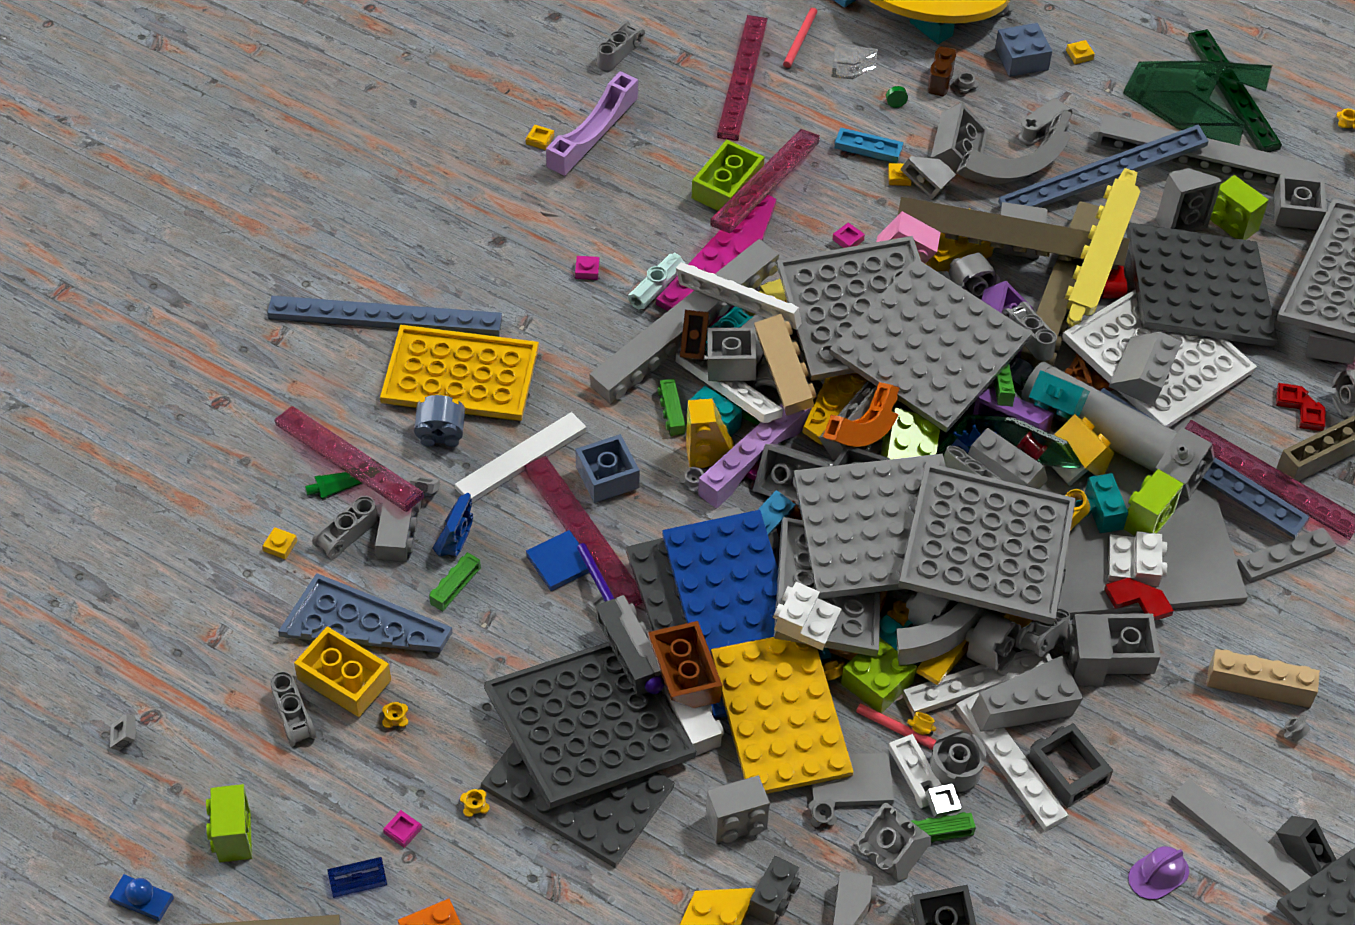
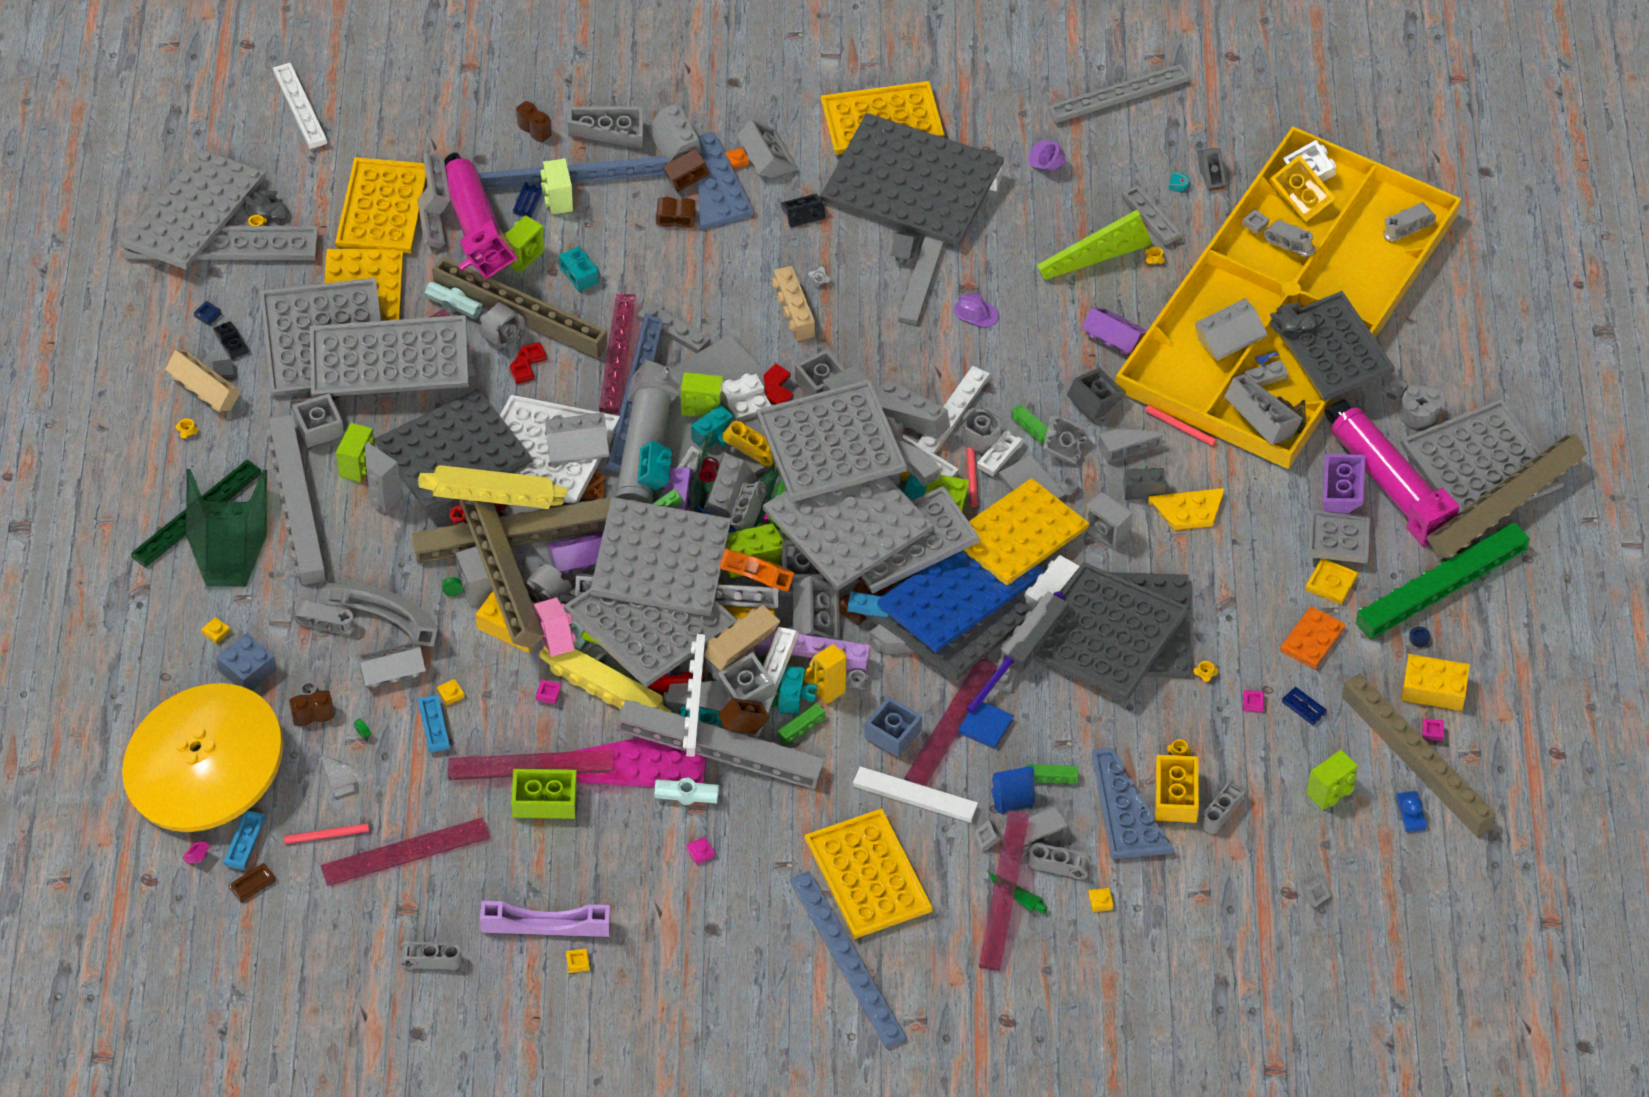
camera: 120 degrees left, 0 degrees up
(439, 421) = (930, 849): sand blue brick -> none
(686, 665) = (1033, 581): dark orange slope -> none
(806, 616) = (954, 525): white plate -> none
(922, 723) = (963, 462): yellow plate -> none
(928, 174) = (447, 661): light grey slope -> none
(943, 800) = (1016, 424): plate -> none
(1043, 338) = (589, 519): light grey piece -> none
(1084, 786) = (943, 363): dark grey window -> none
(1088, 447) = (682, 443): yellow slope -> none
(1108, 169) = (369, 550): sand blue plate -> none

